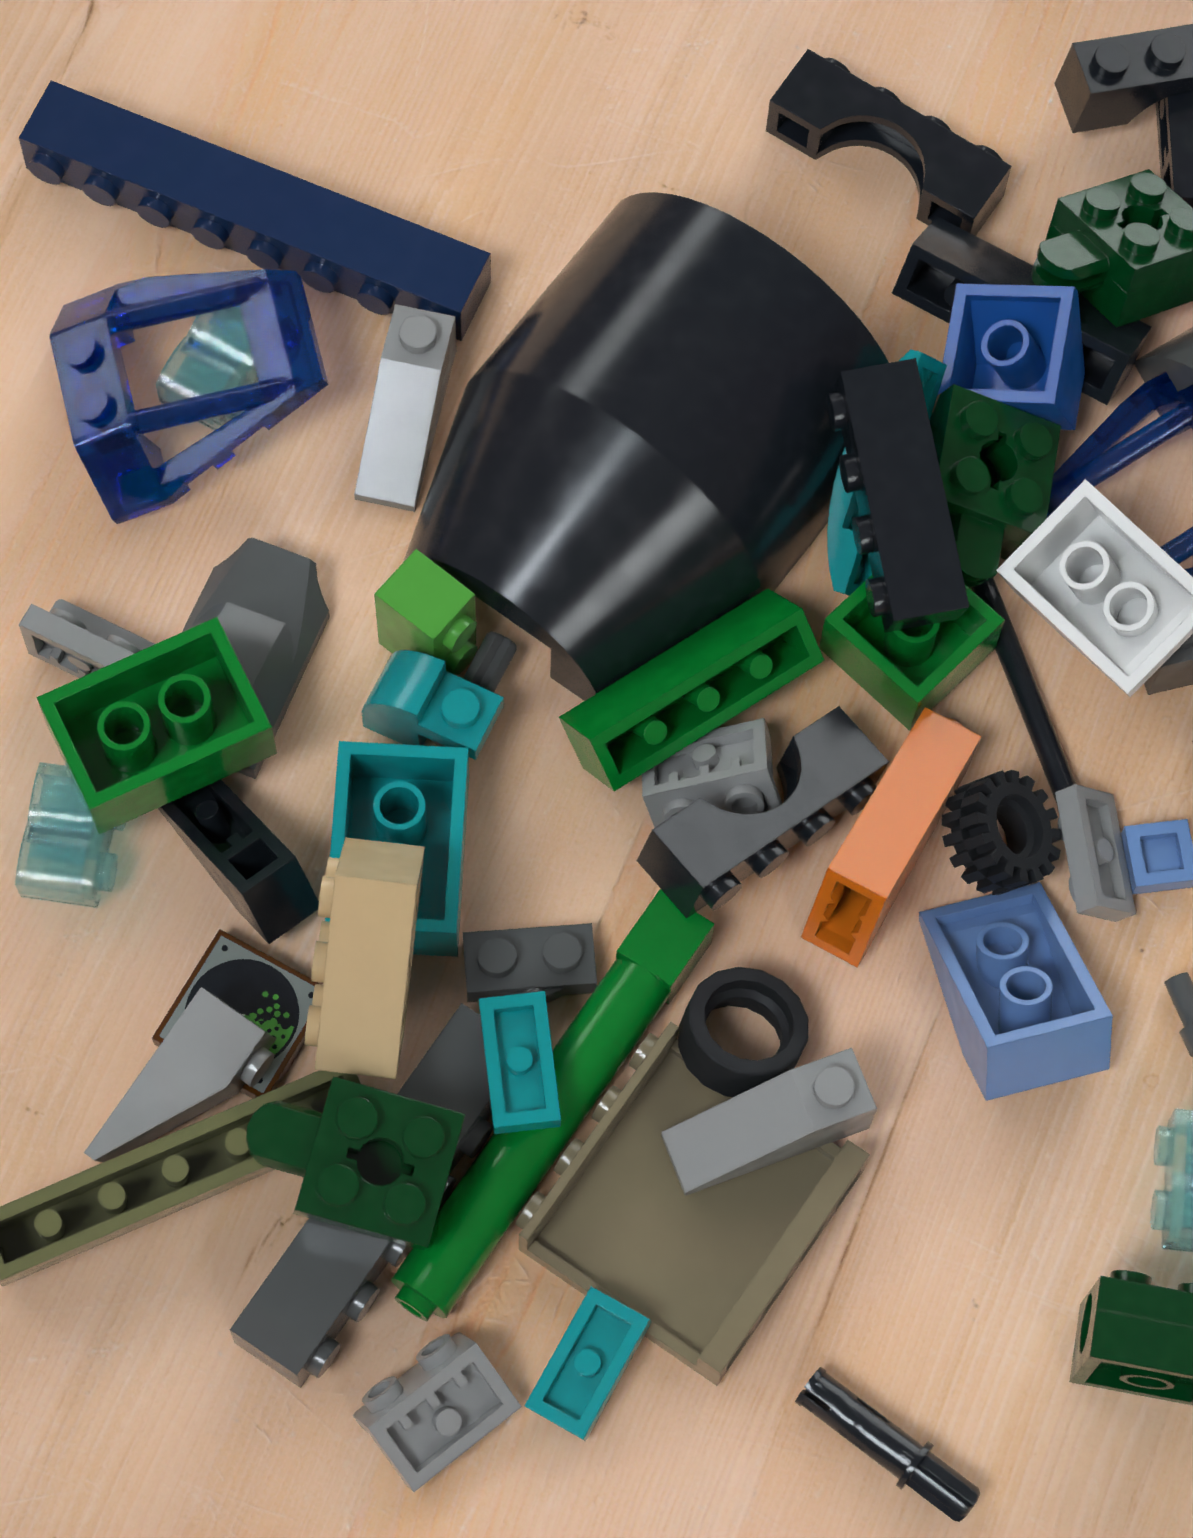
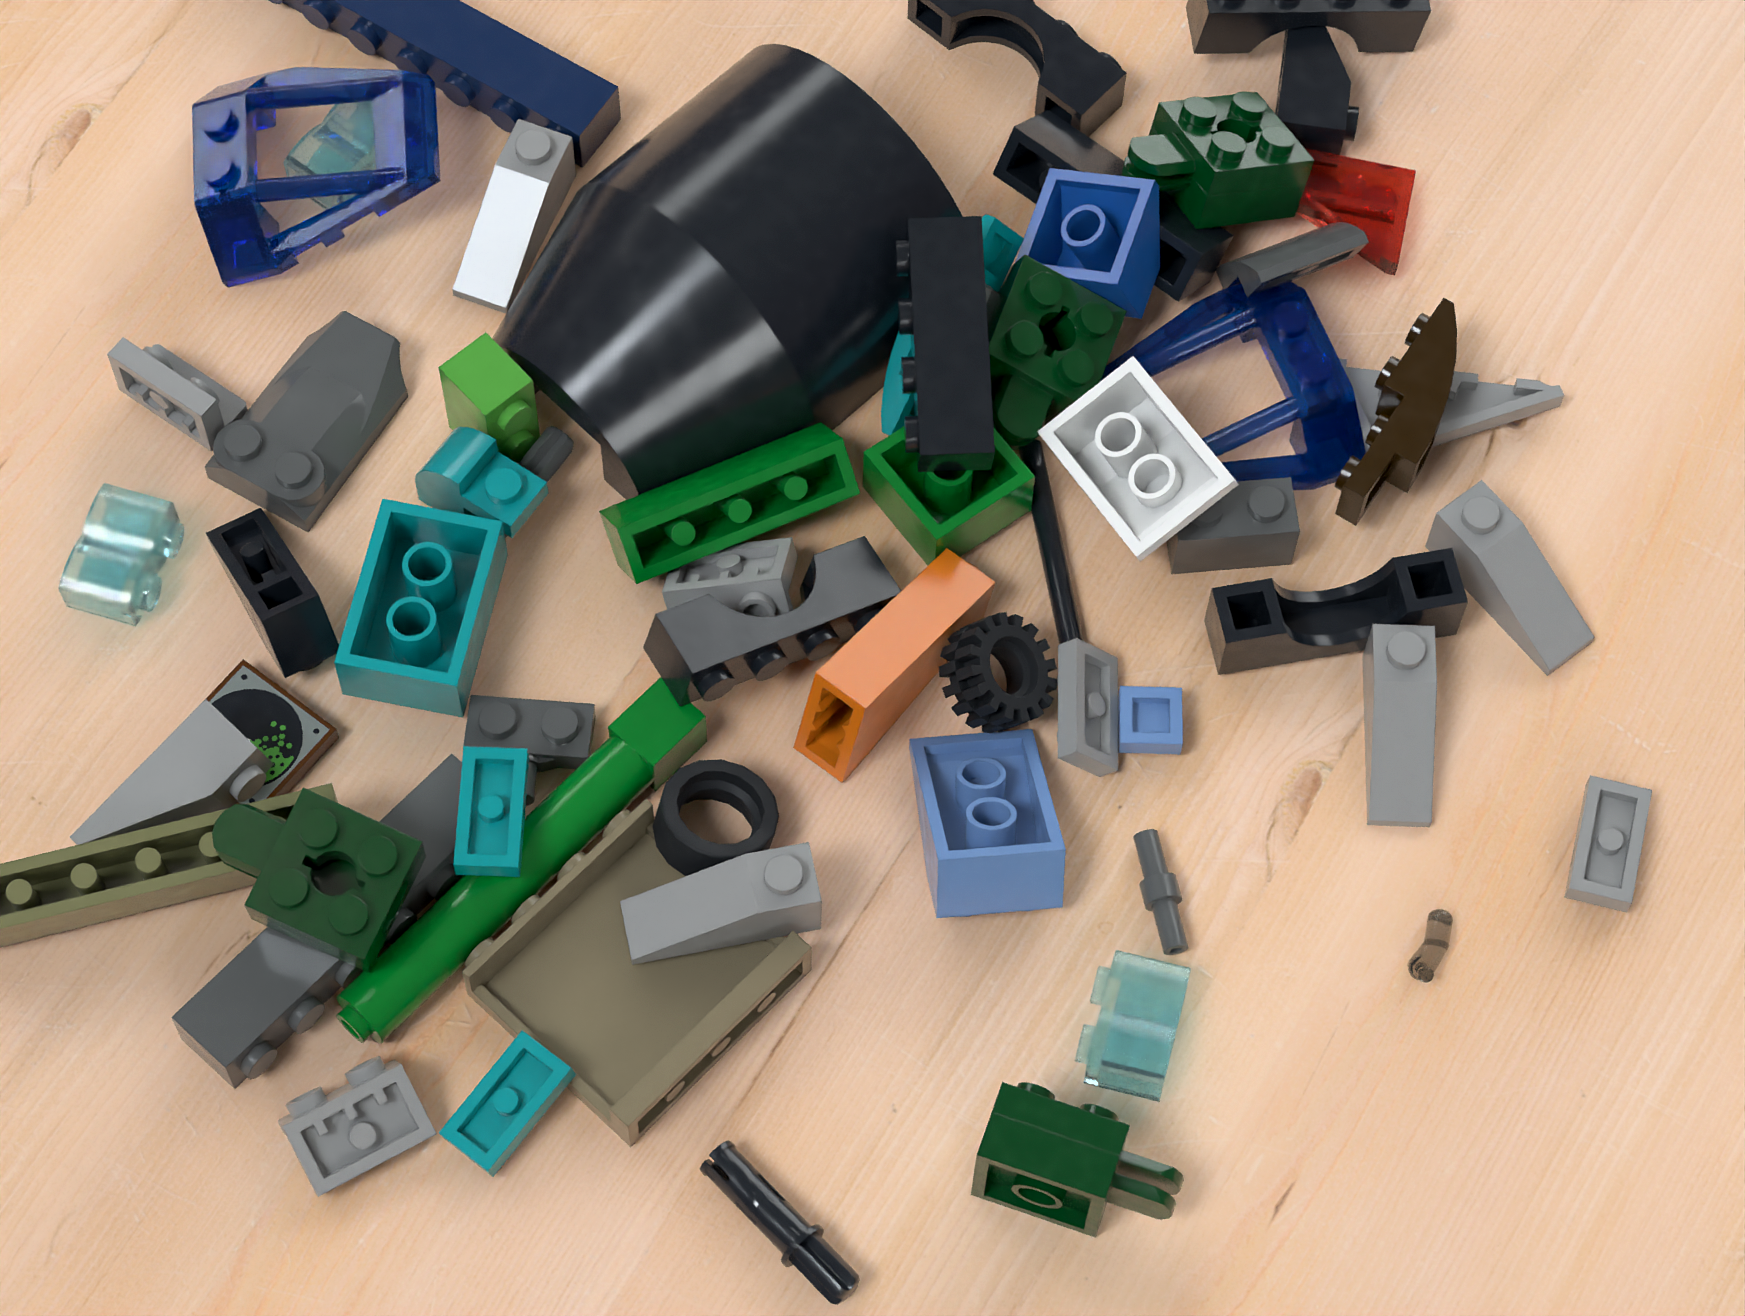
camera: 10 degrees right, 5 degrees down
(158, 725) = (212, 458): green brick -> none
(364, 957) = (361, 690): tan brick -> none

